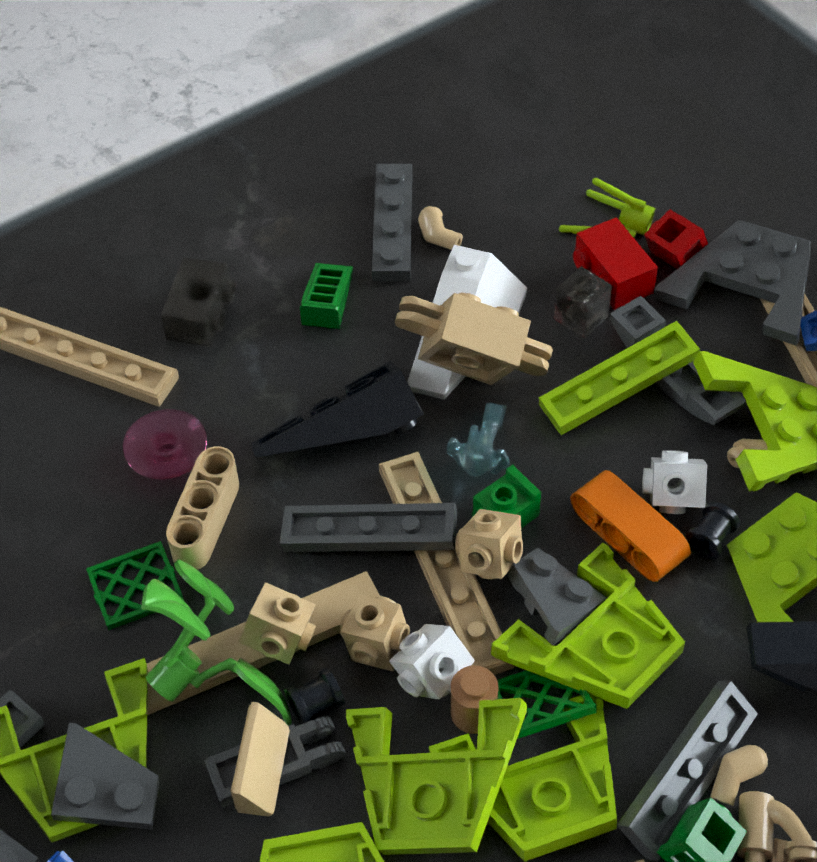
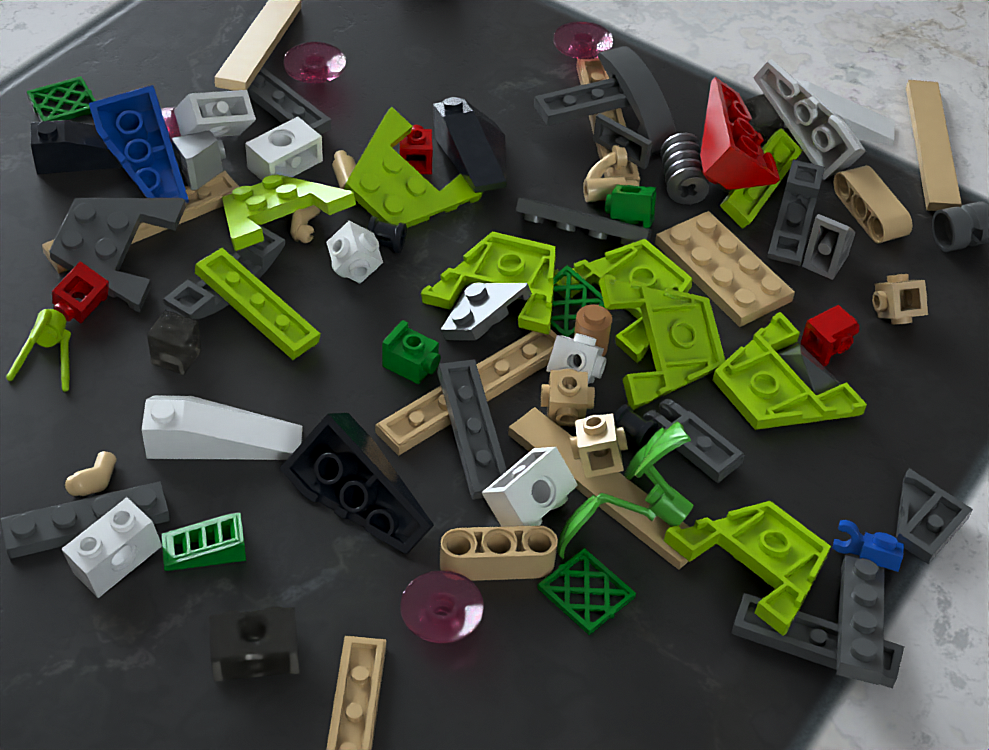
camera: 115 degrees left, 5 degrees down
(102, 784) = (779, 521): dark grey wing -> none
(259, 762) = (717, 430): tan slope -> none
(260, 548) = (538, 473): none -> white brick
(338, 220) = (112, 547): none -> white brick
(473, 337) = (265, 381): tan brick -> none
(477, 453) = (372, 377): clear light blue piece -> none
(490, 544) = (462, 340): tan brick -> none
(617, 259) = (119, 326): red brick -> none
(630, 525) = (399, 279): orange beam -> none
(736, 768) = (567, 197): tan arm -> none

